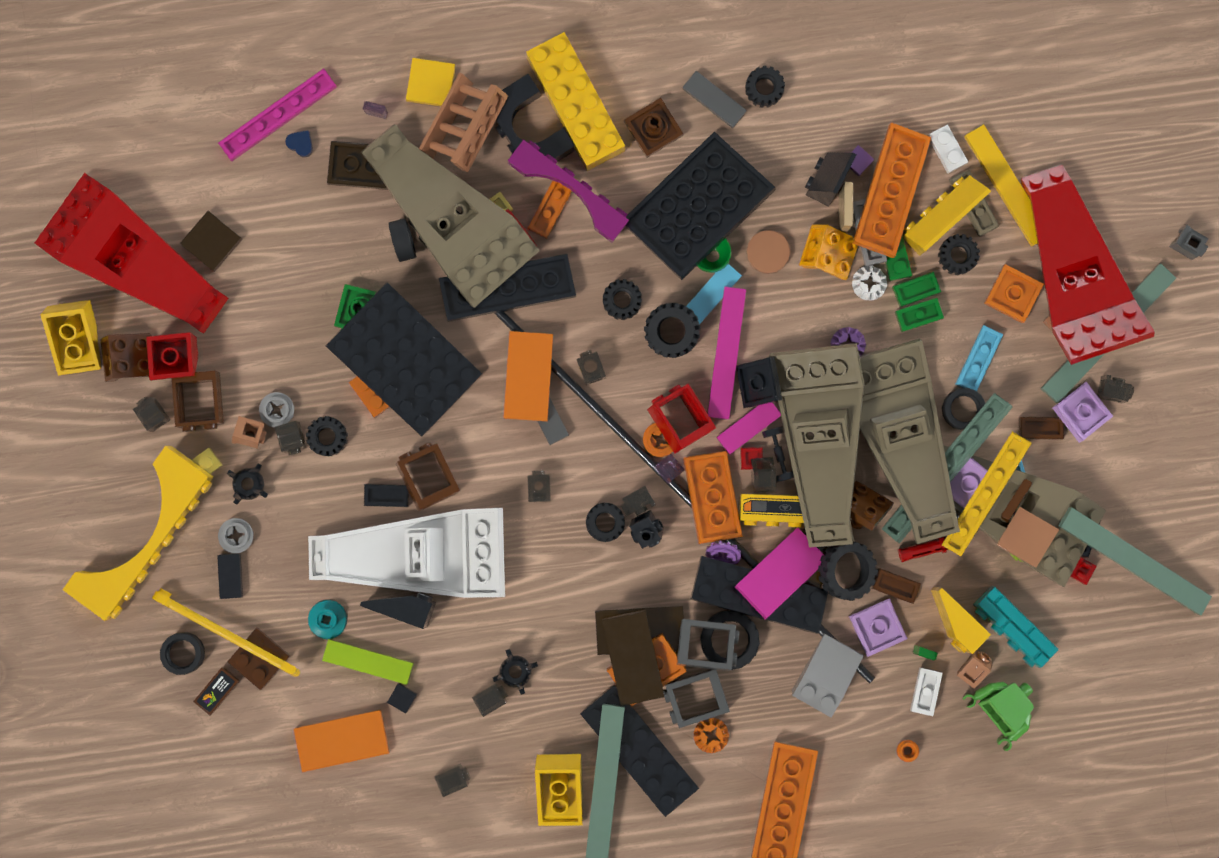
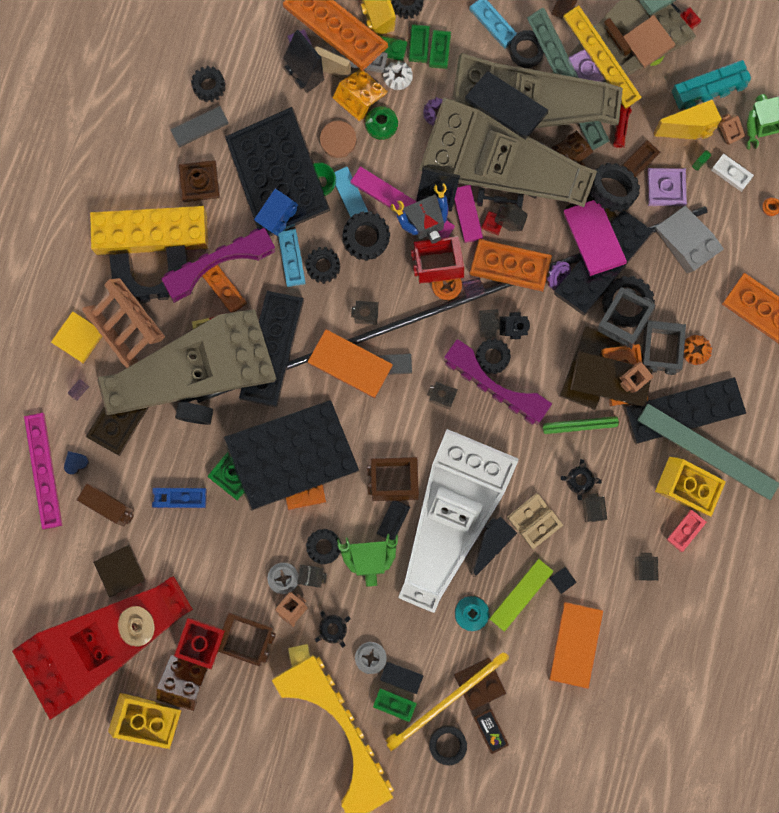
camera: 65 degrees left, 5 degrees down
(151, 413) = (238, 683): clear smoke brick -> none
(163, 292) = (142, 623): none -> tan dish
(199, 581) = (394, 705): none -> green plate
(268, 195) = (105, 505): none -> reddish brown window
(311, 267) = (180, 497): none -> blue plate
(334, 487) = (369, 558): none -> bright green torso
(450, 642) = (534, 521): none -> tan slope
(510, 805) = (686, 531): none -> coral plate
(573, 646) = (579, 425): none -> bright green axle
(586, 493) = (528, 404): none -> magenta arch
(616, 263) = (291, 258): none -> medium azure tile
(644, 689) = (641, 377): none -> nougat brick
(652, 225) = (276, 212): none -> blue brick
(720, 383) = (424, 217): none -> torso
(770, 509) = (541, 224): brick -> none
(805, 300) = (381, 131): none -> green piece
(880, 414) = (506, 105): none -> black tile

